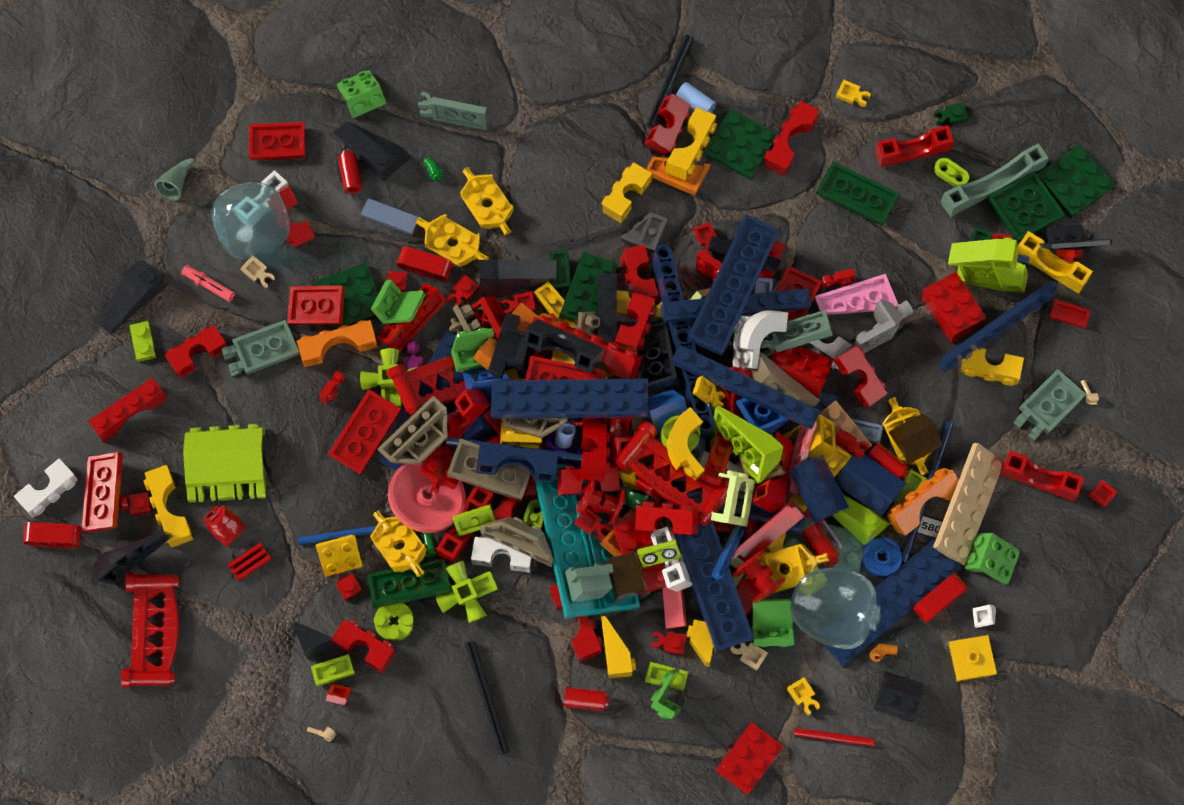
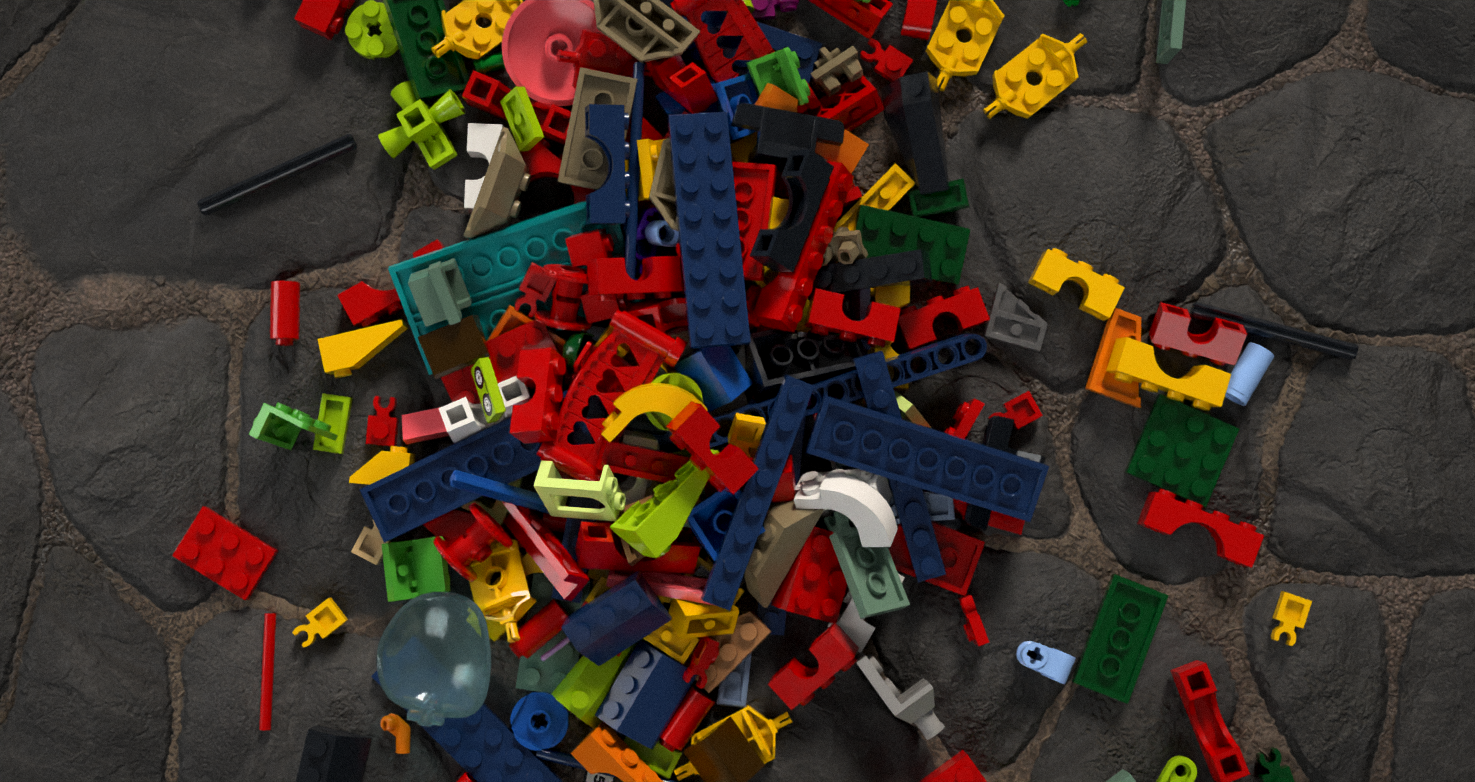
camera: 80 degrees right, 15 degrees up
(526, 298) = (879, 152): red plate -> none
(532, 518) = (545, 202): lime plate -> none
(688, 283) = (933, 393): flat silver wing -> none
(727, 399) = (693, 431): none -> red arch
(857, 297) = (946, 654): bright pink wing -> none
(868, 238) = (1049, 661): none -> light blue piece

